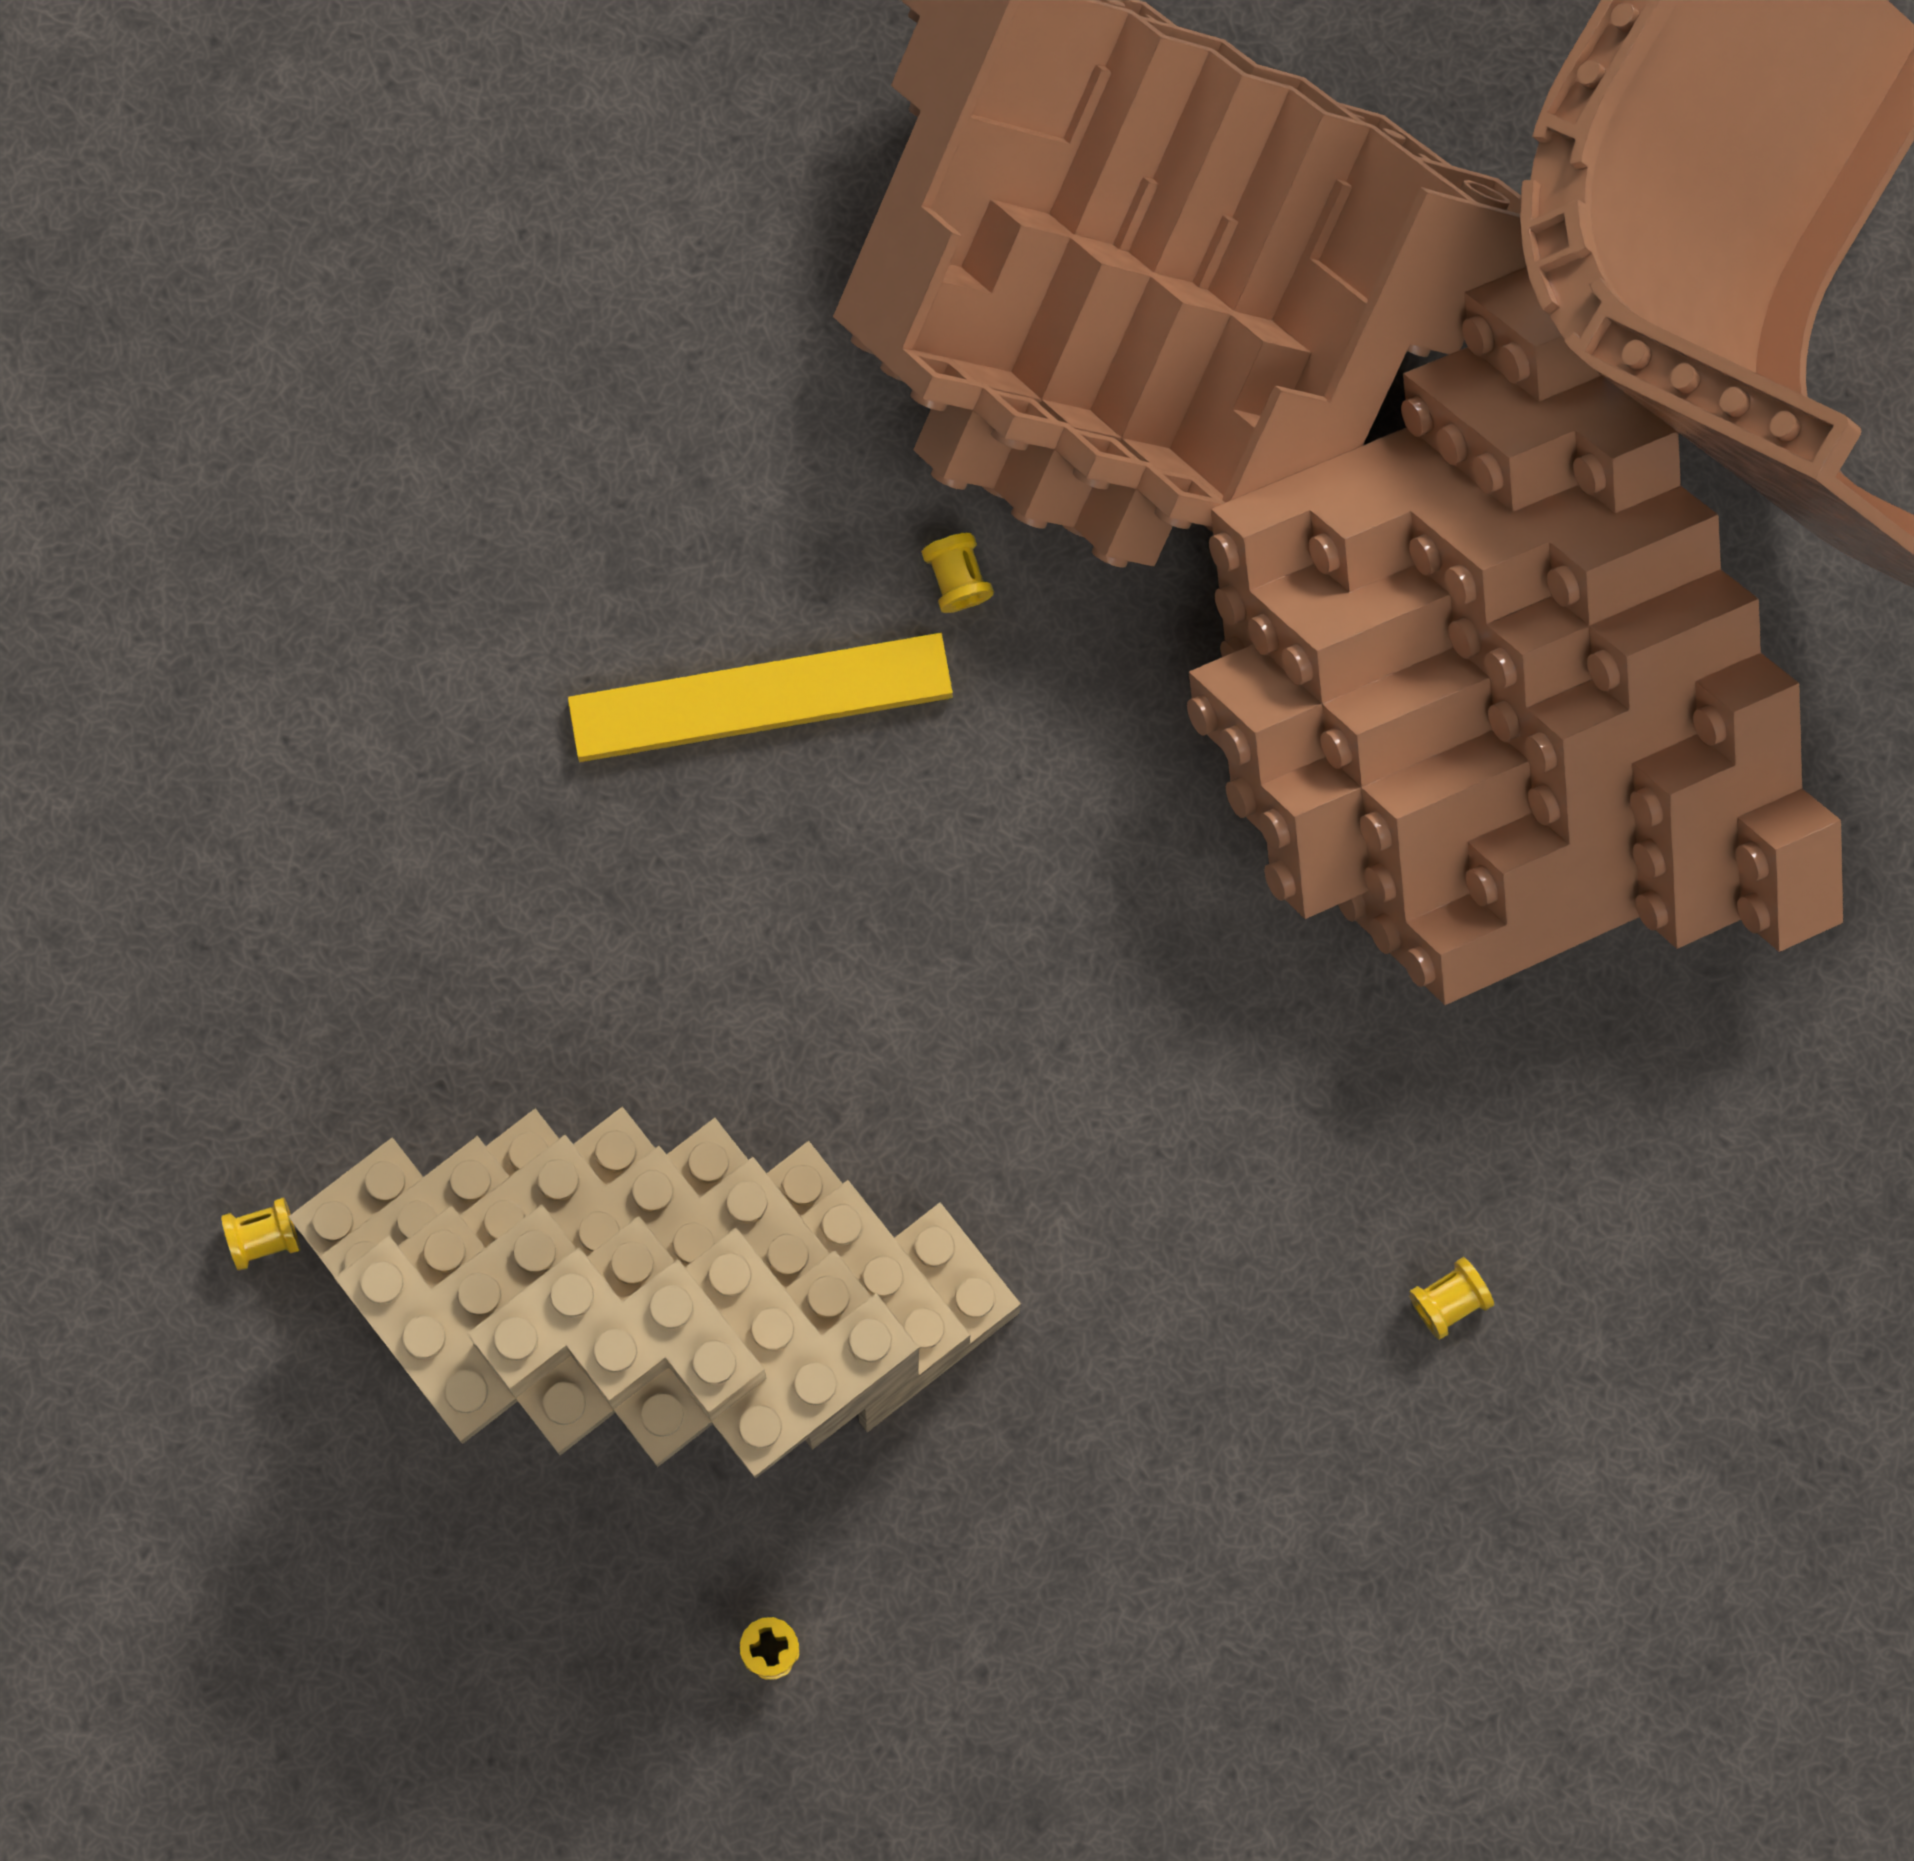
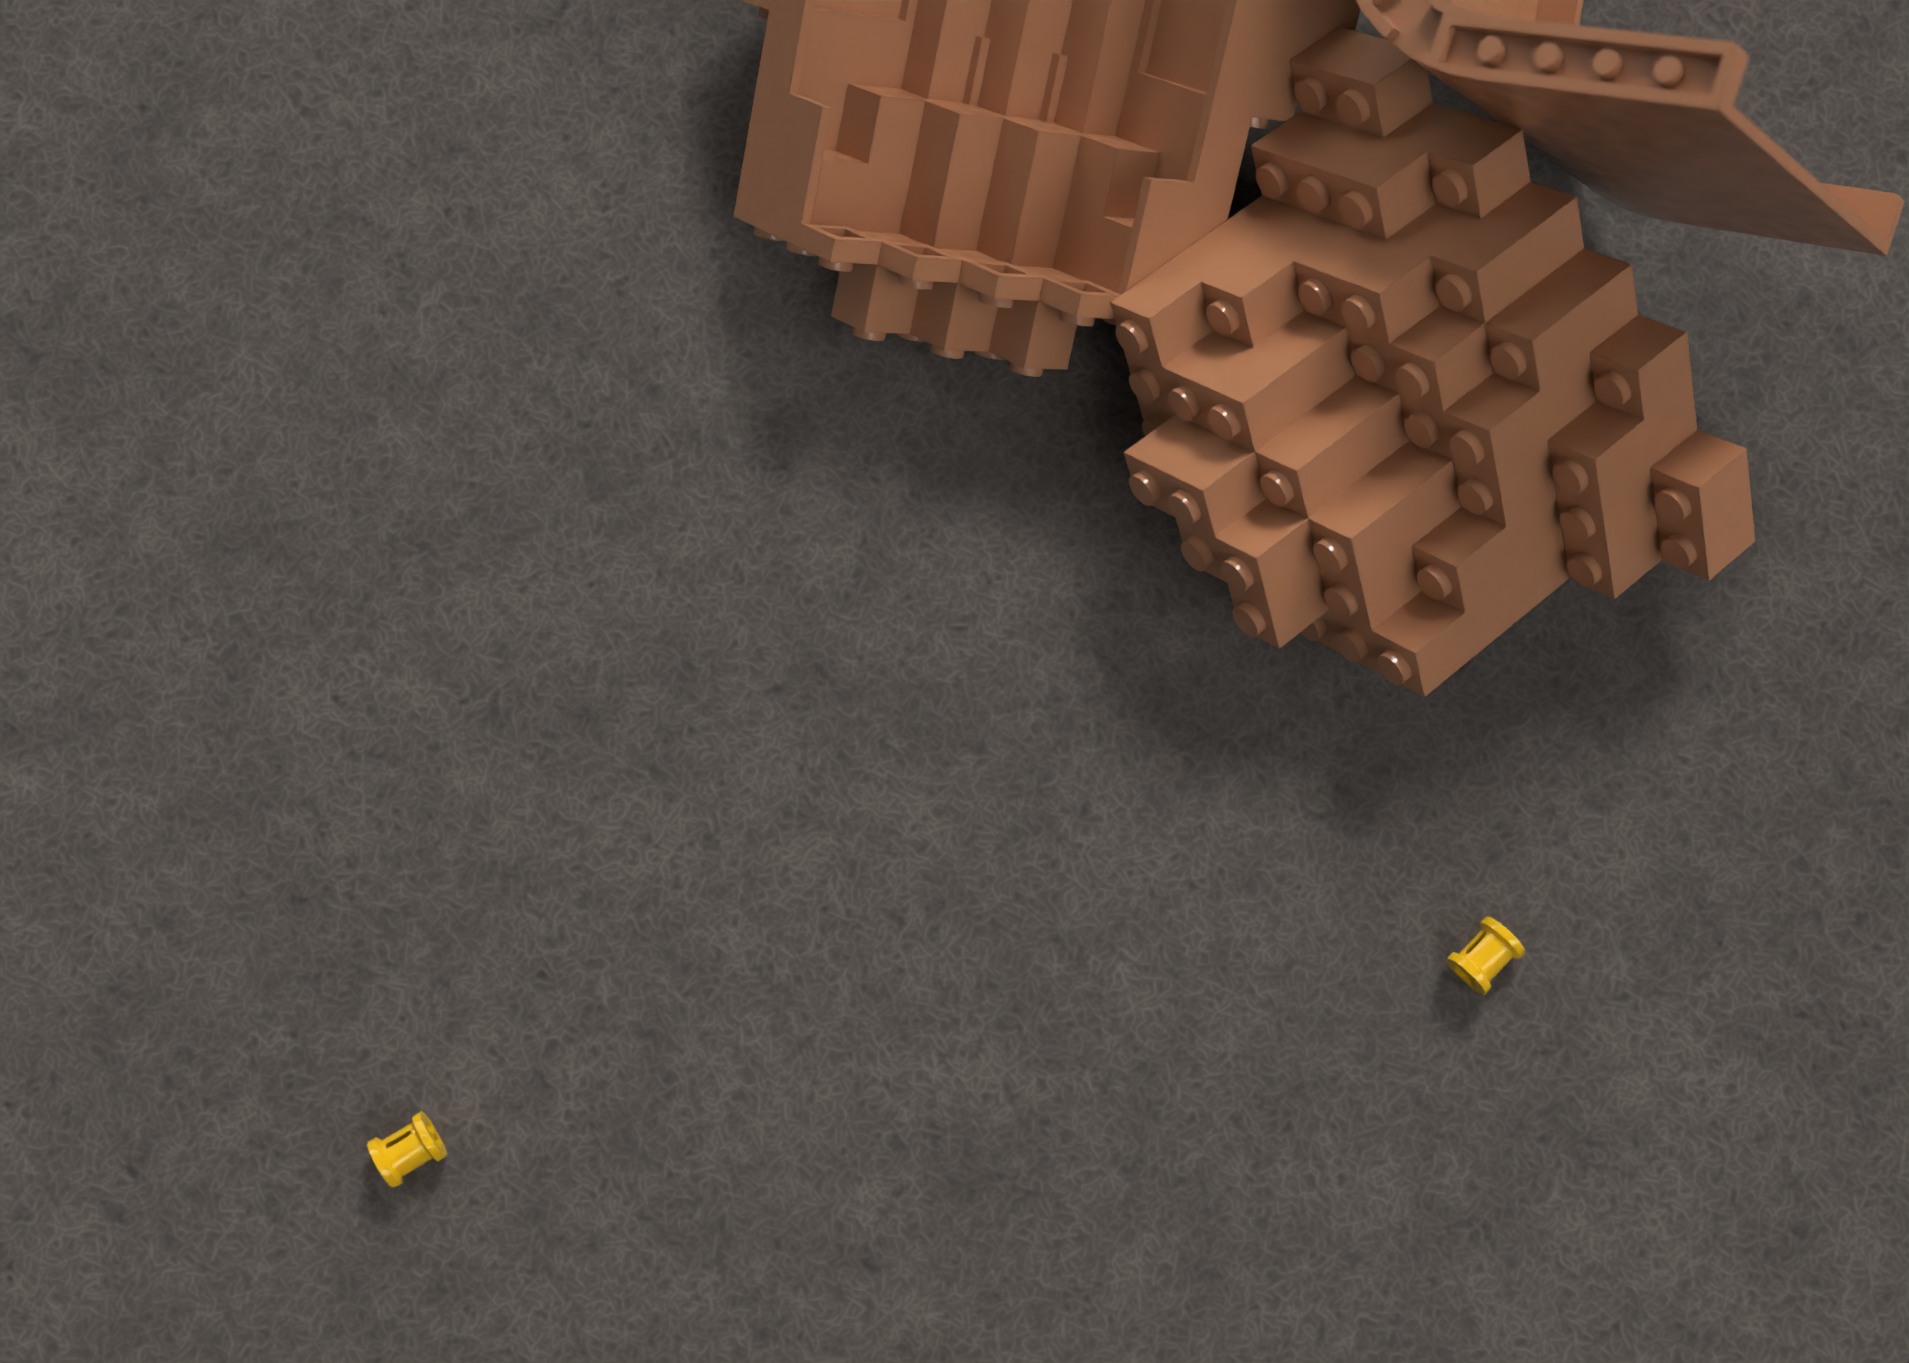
camera: 10 degrees left, 0 degrees up
(650, 1287) = (761, 1140): tan panel -> none
(760, 697) = (746, 564): yellow tile -> none
(957, 572) = (894, 416): yellow bush -> none

